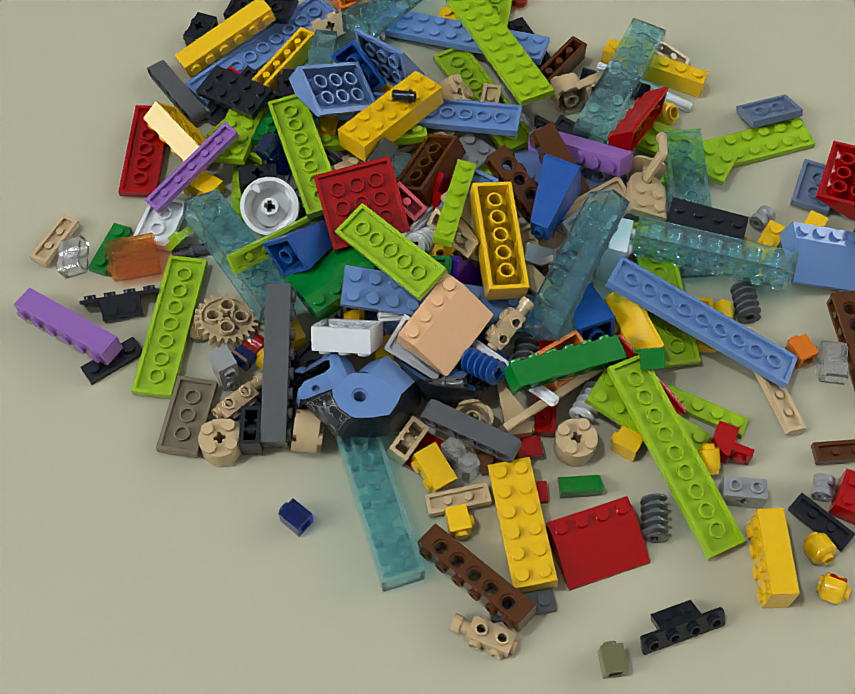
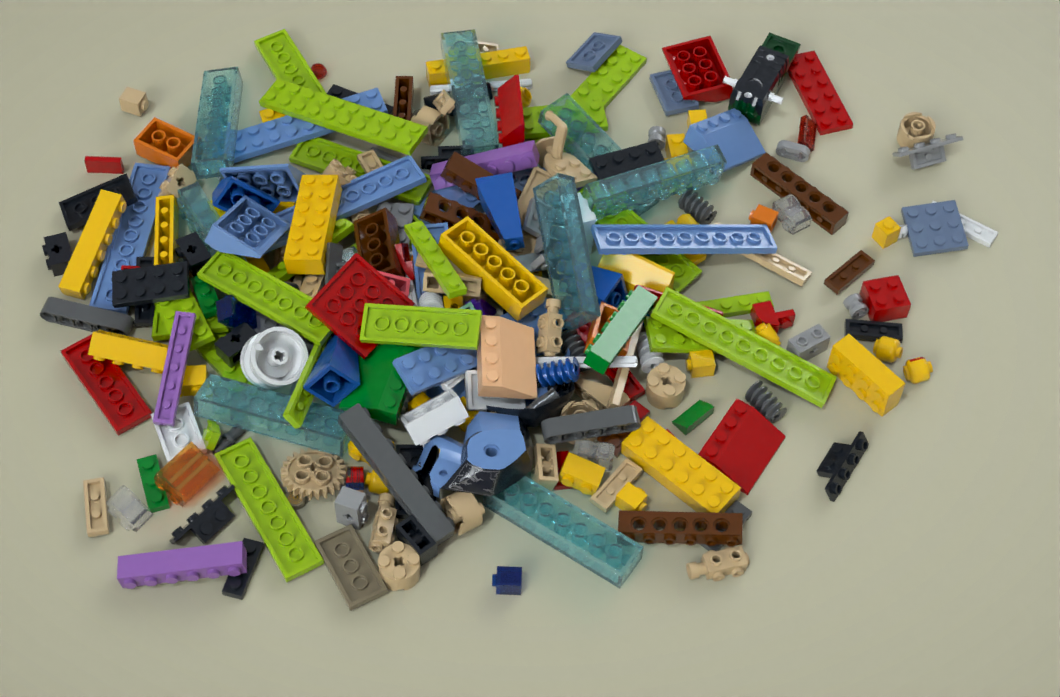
camera: 40 degrees left, 5 degrees down
(404, 96) = (318, 199): black pin -> none
(612, 660) = (818, 518): olive brick -> none
(651, 358) = (675, 285): green panel -> none

